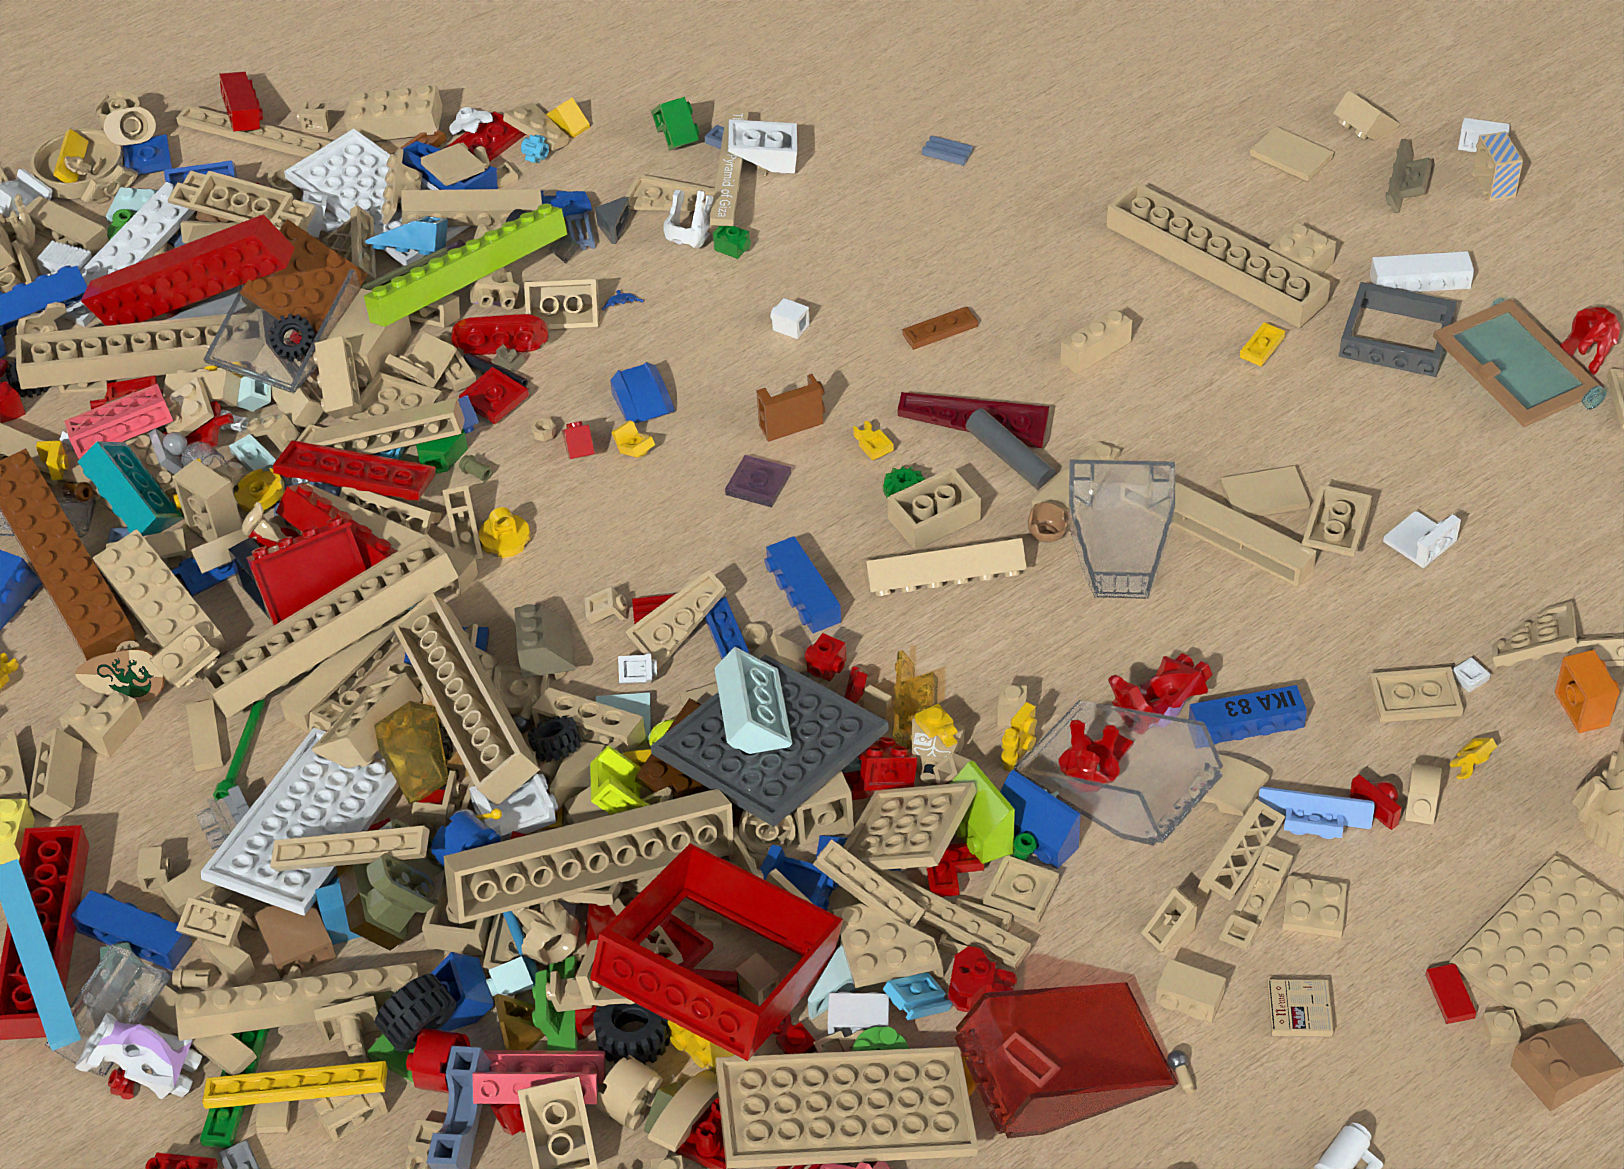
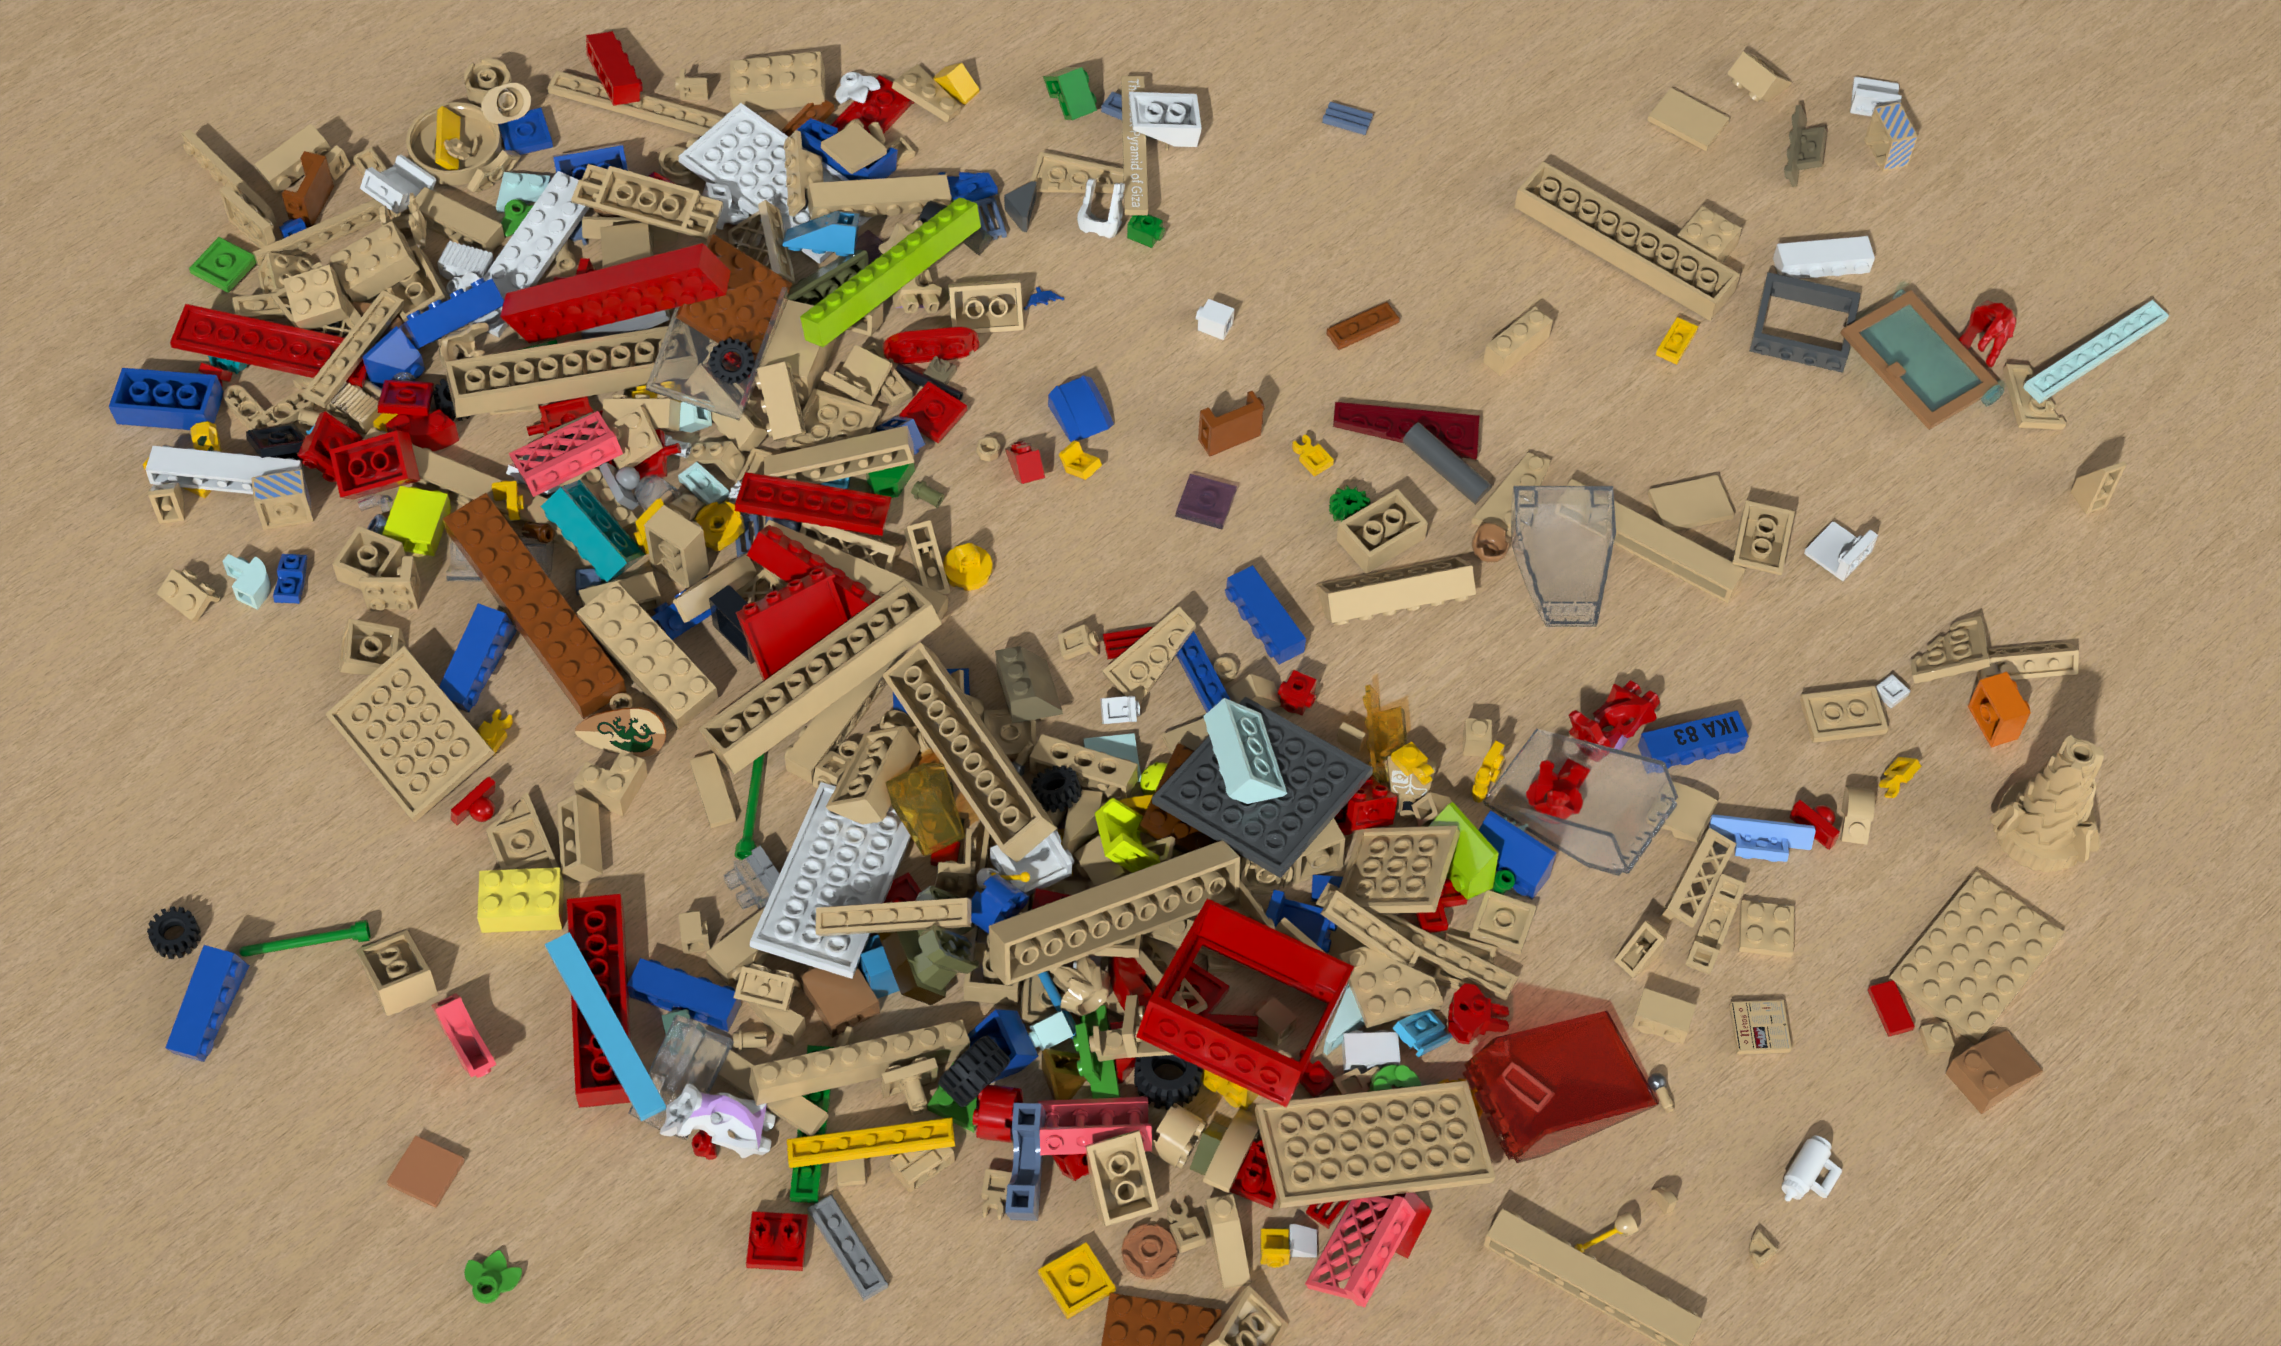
camera: 10 degrees left, 10 degrees up
(185, 657) = (689, 717): tan bracket -> none
(263, 532) = (747, 582): tan hair -> none
(534, 148) = (929, 122): medium azure gear -> none
(856, 684) = (1328, 720): red tile -> none

